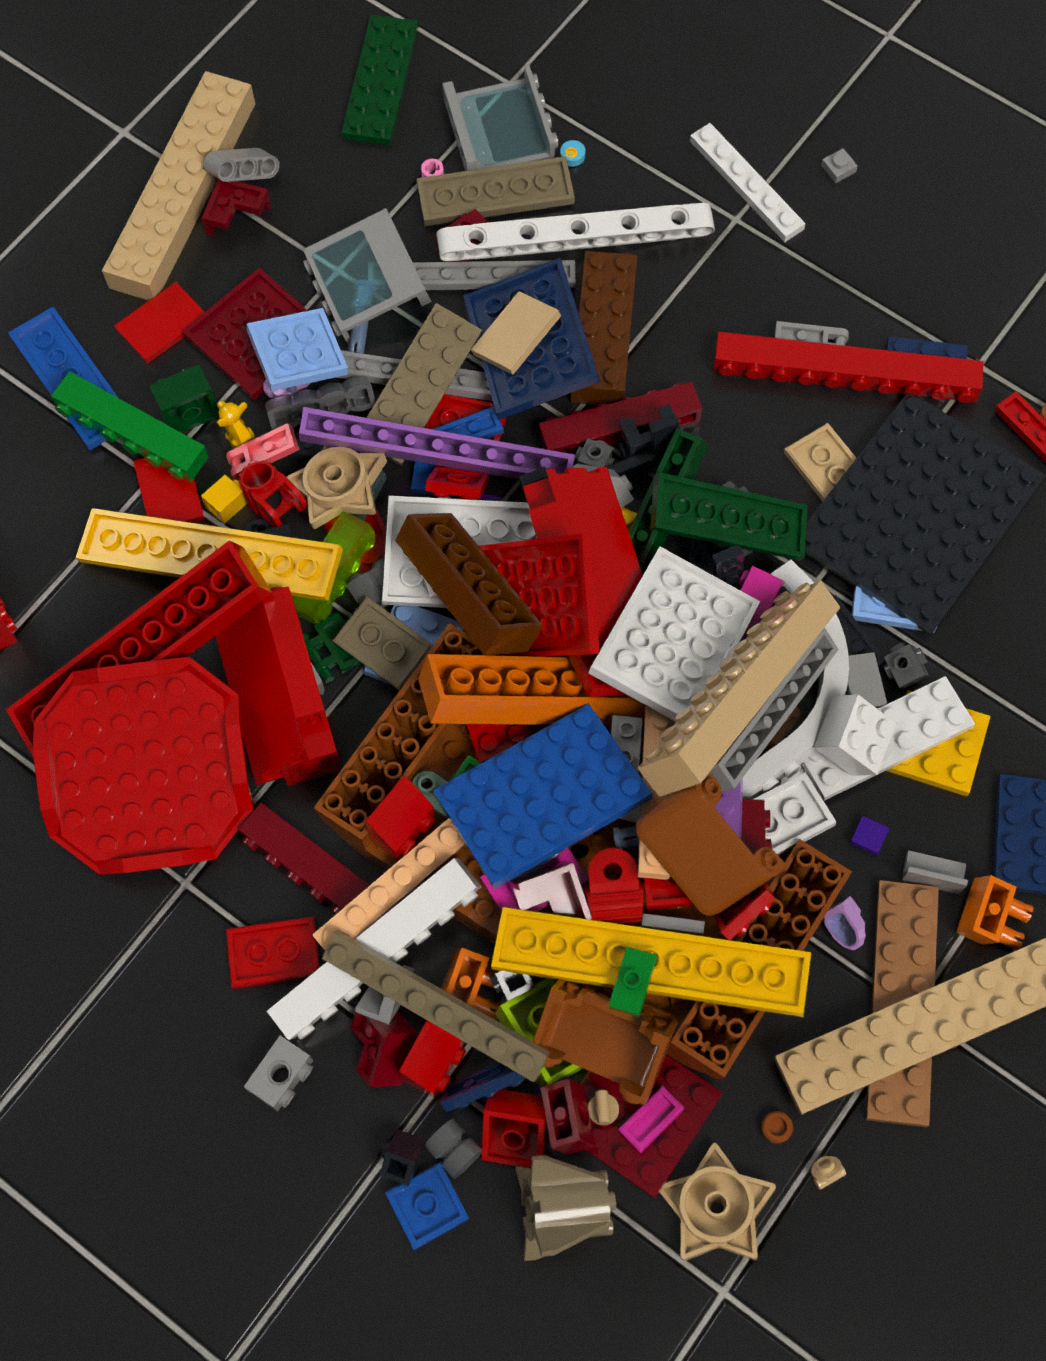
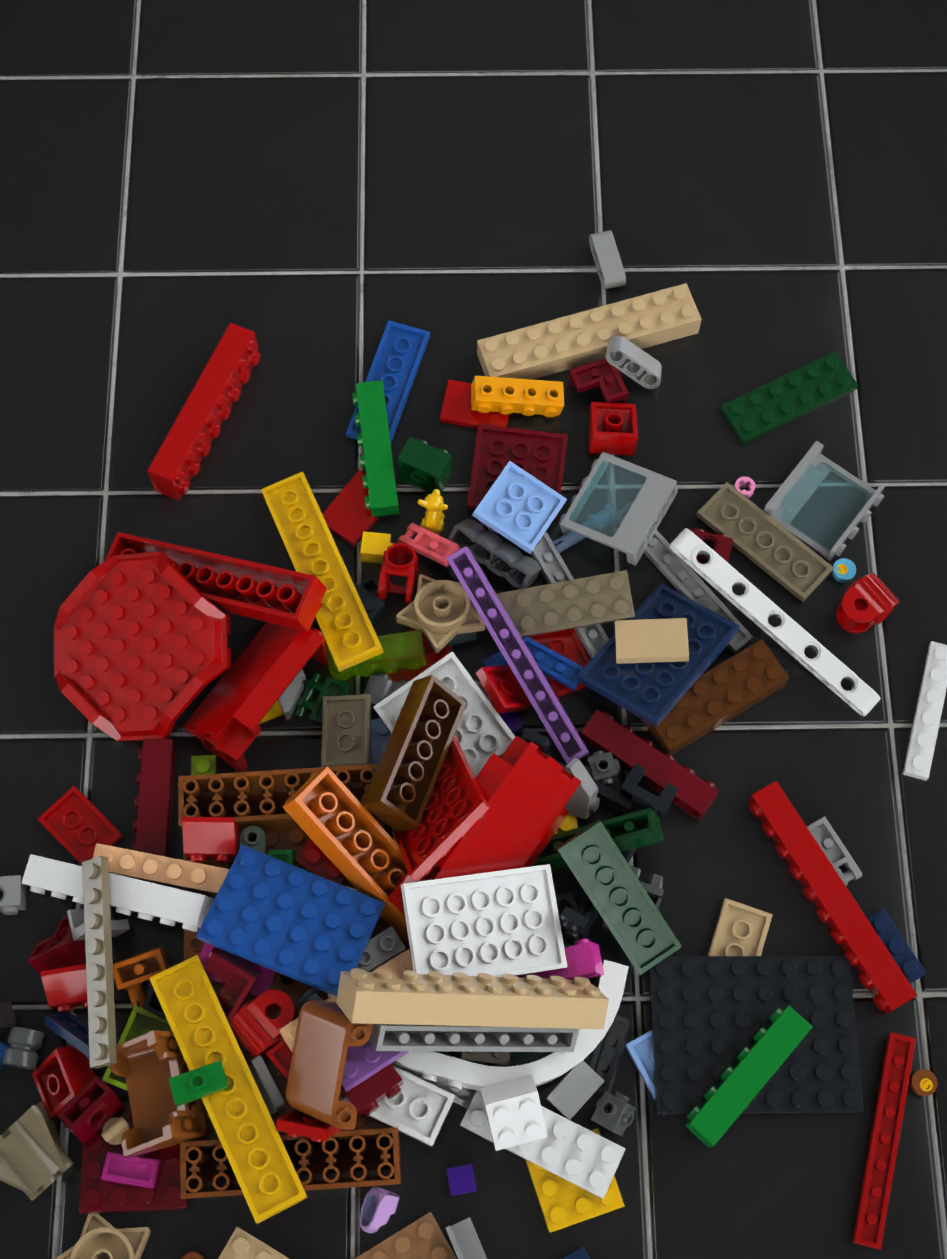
camera: 50 degrees right, 0 degrees up
(119, 119) = (607, 259): none -> light grey beam
(185, 279) = (517, 396): none -> light orange brick
(287, 227) = (613, 428): none -> red slope
(306, 798) = (203, 764): none -> lime plate
(619, 153) = (865, 604): none -> red piece
(957, 534) = (748, 1077): none -> green brick

